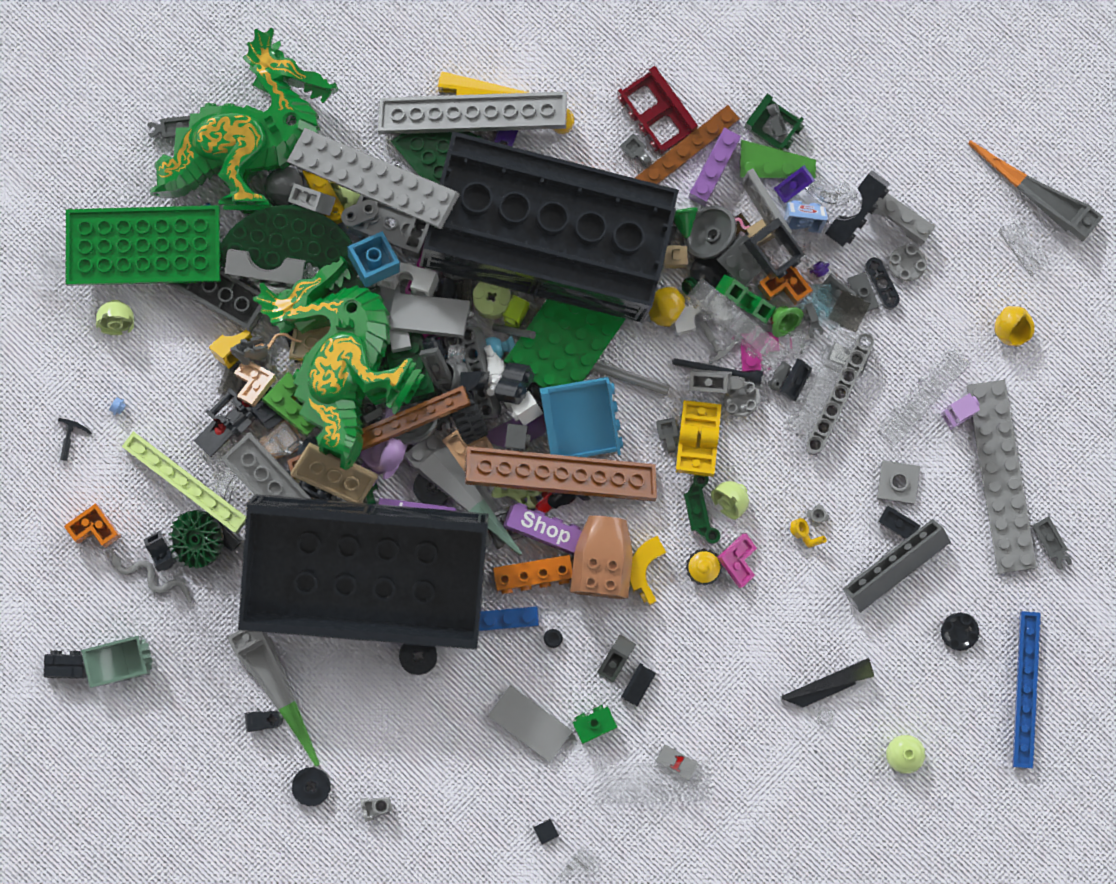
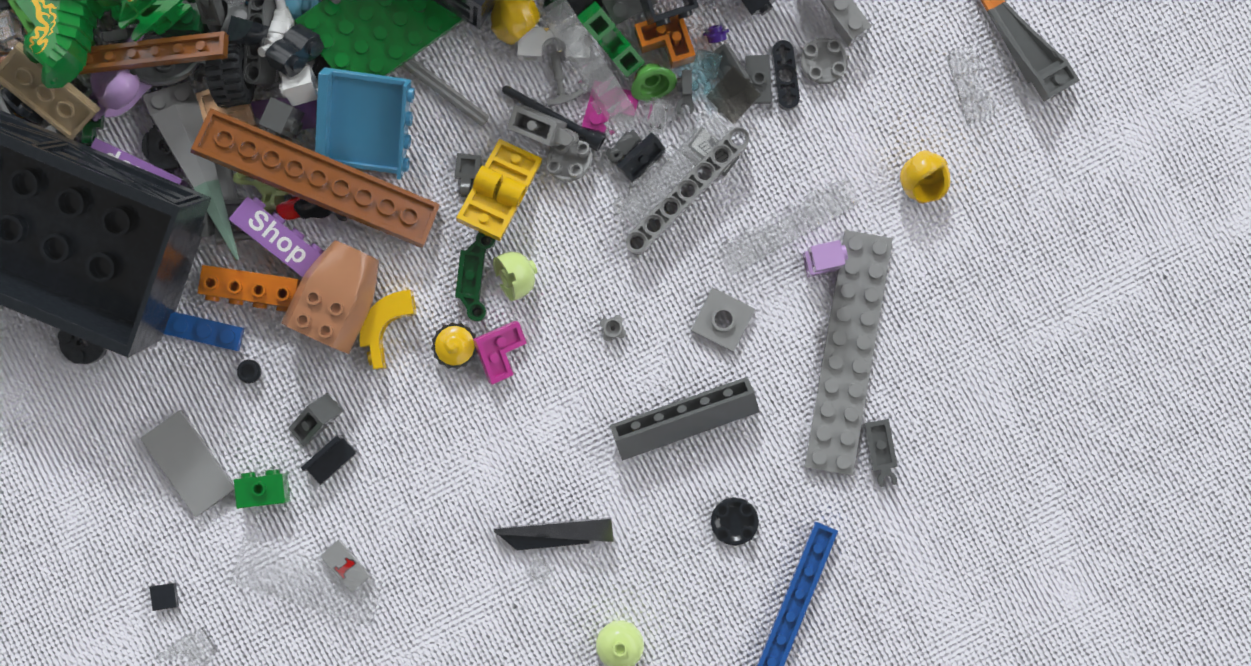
camera: 20 degrees right, 5 degrees up
(800, 529) = (586, 337): yellow plate -> none
(898, 522) = (705, 368): black plate -> none

